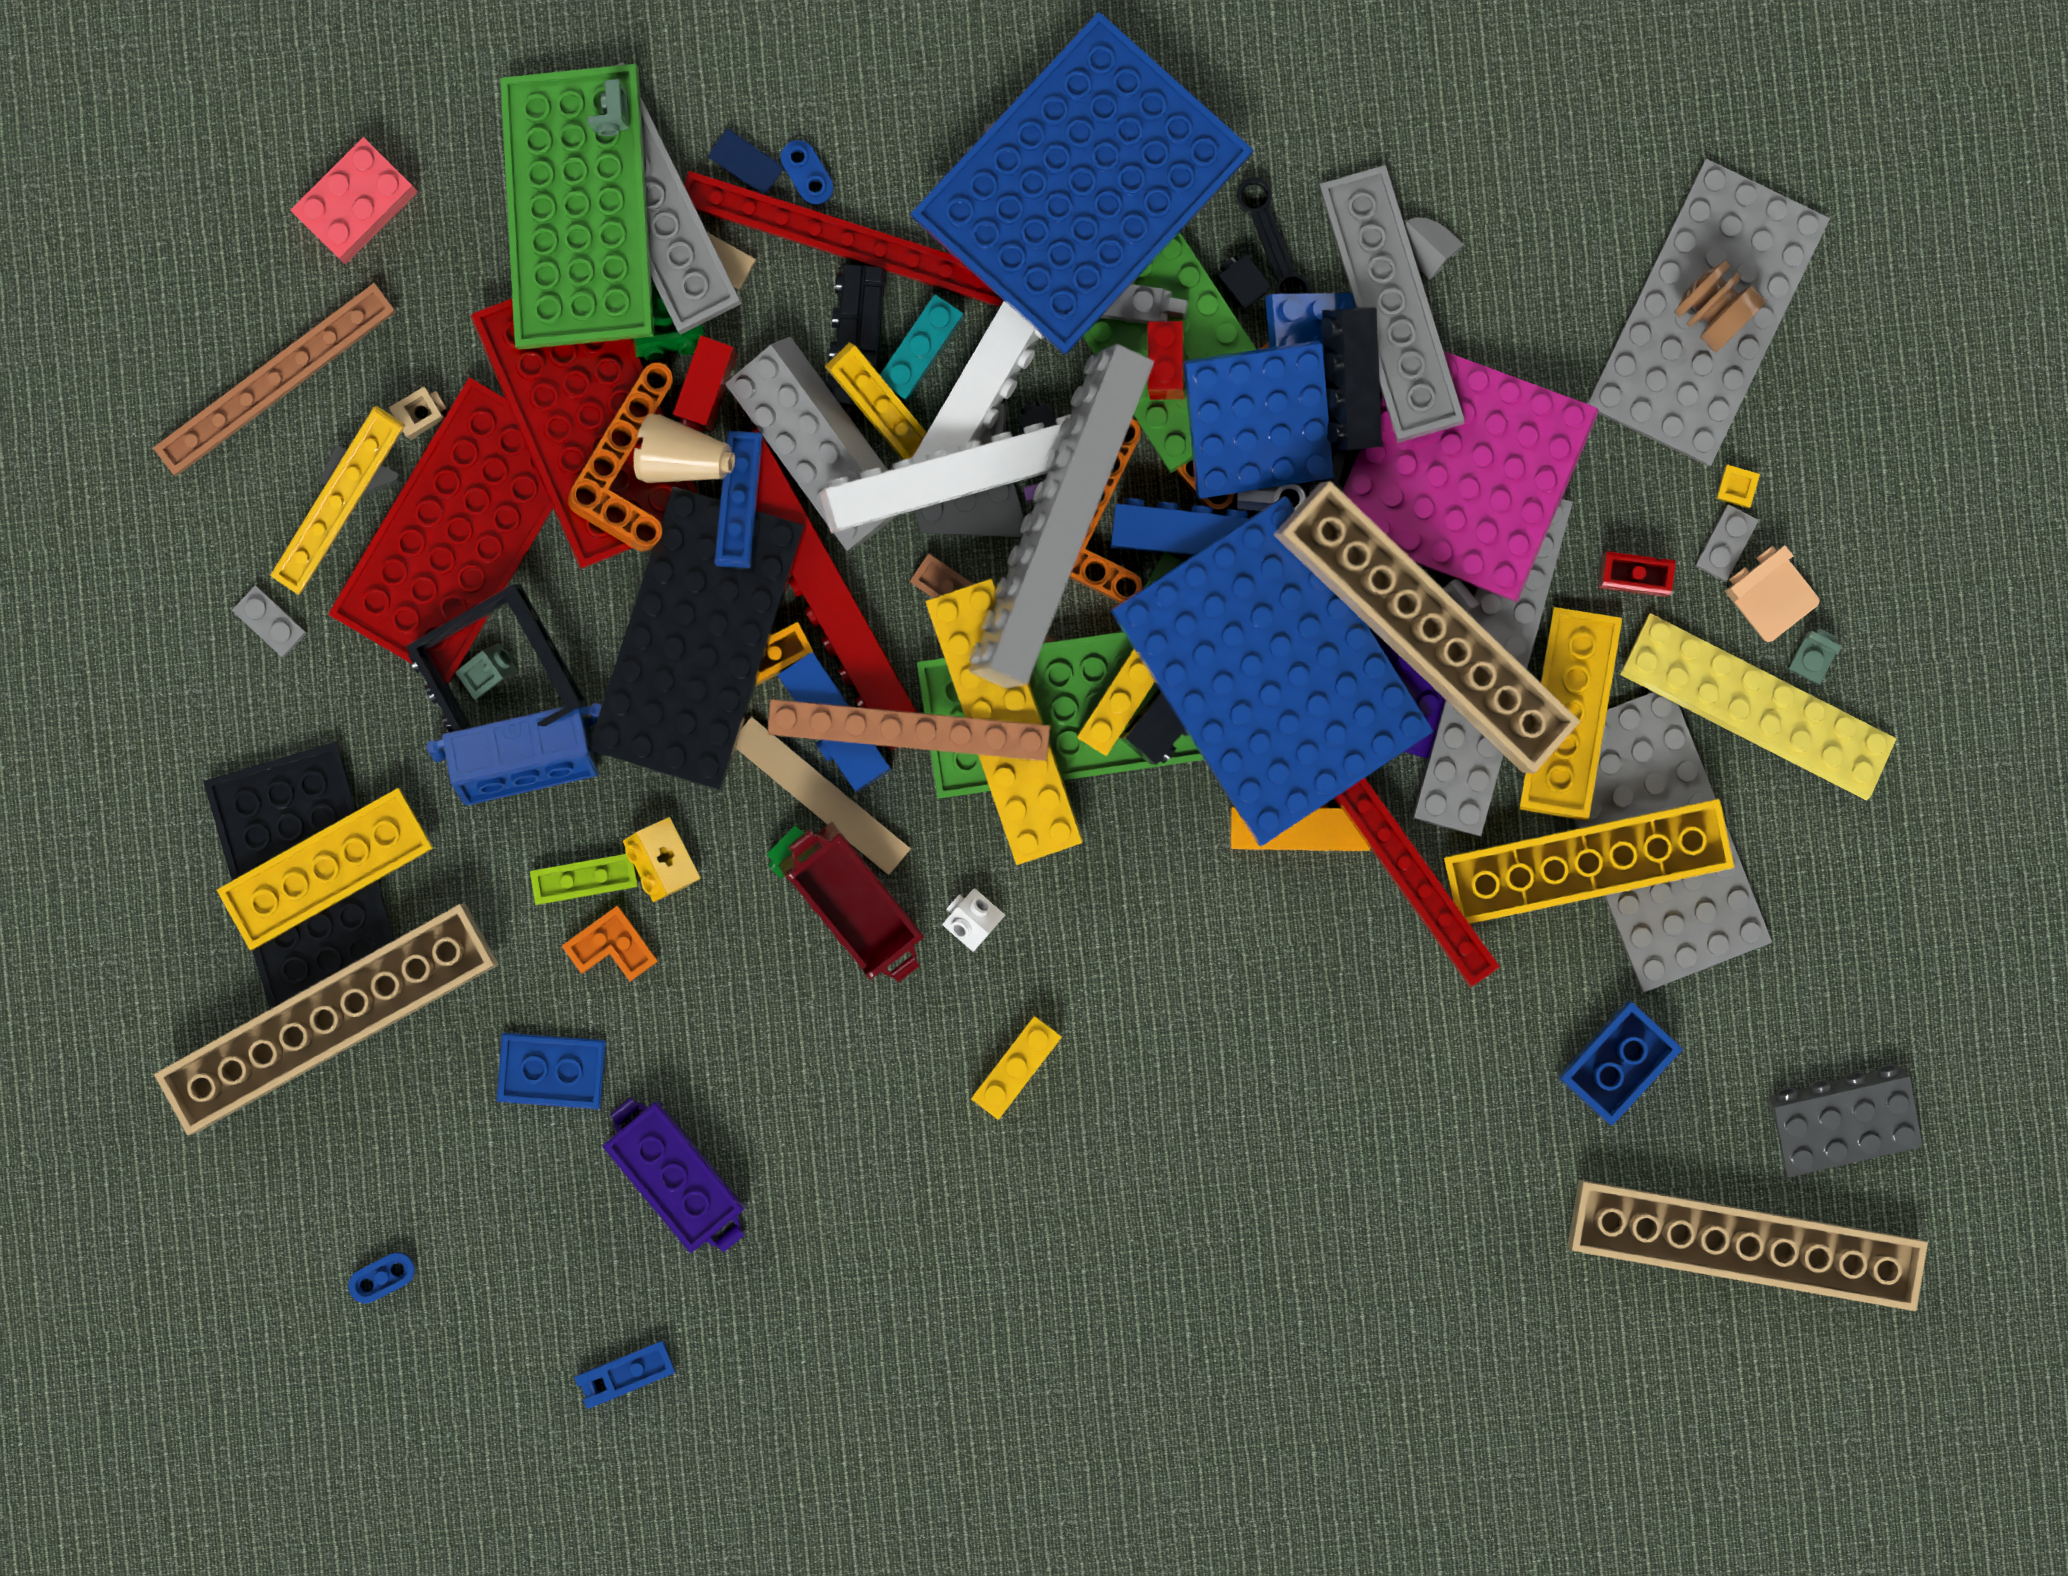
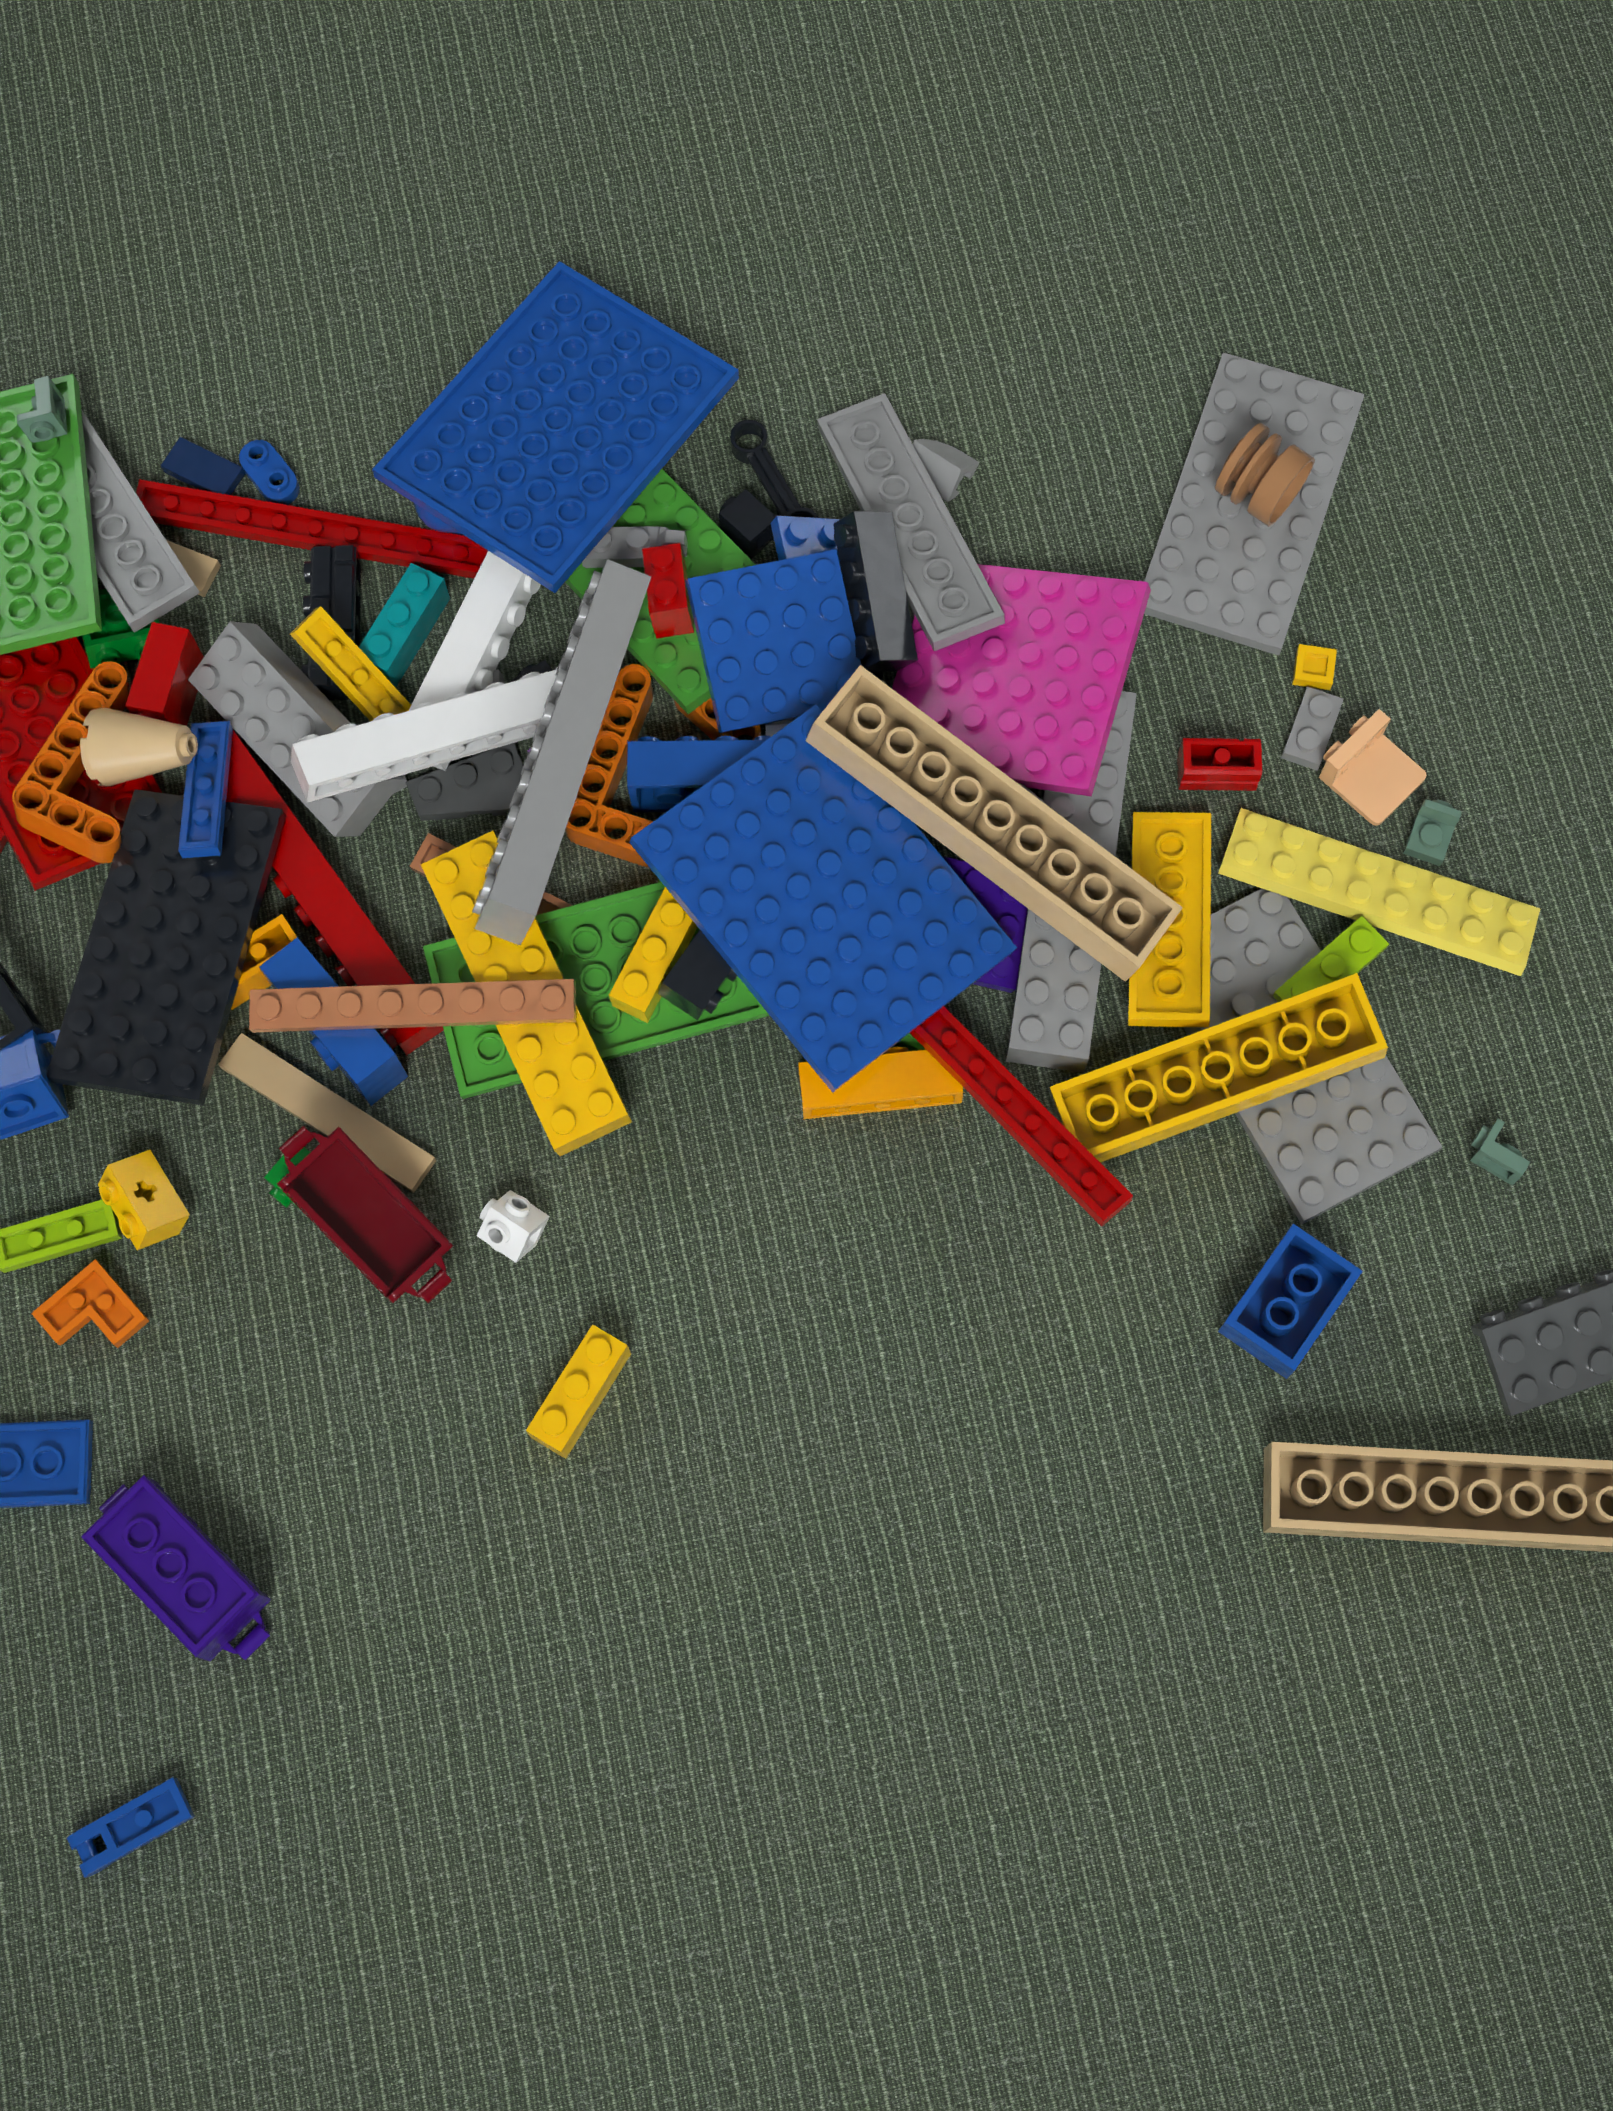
camera: 10 degrees left, 15 degrees down
(1704, 774) = (1341, 958): none -> lime plate
(1820, 960) = (1498, 1159): none -> sand green bracket

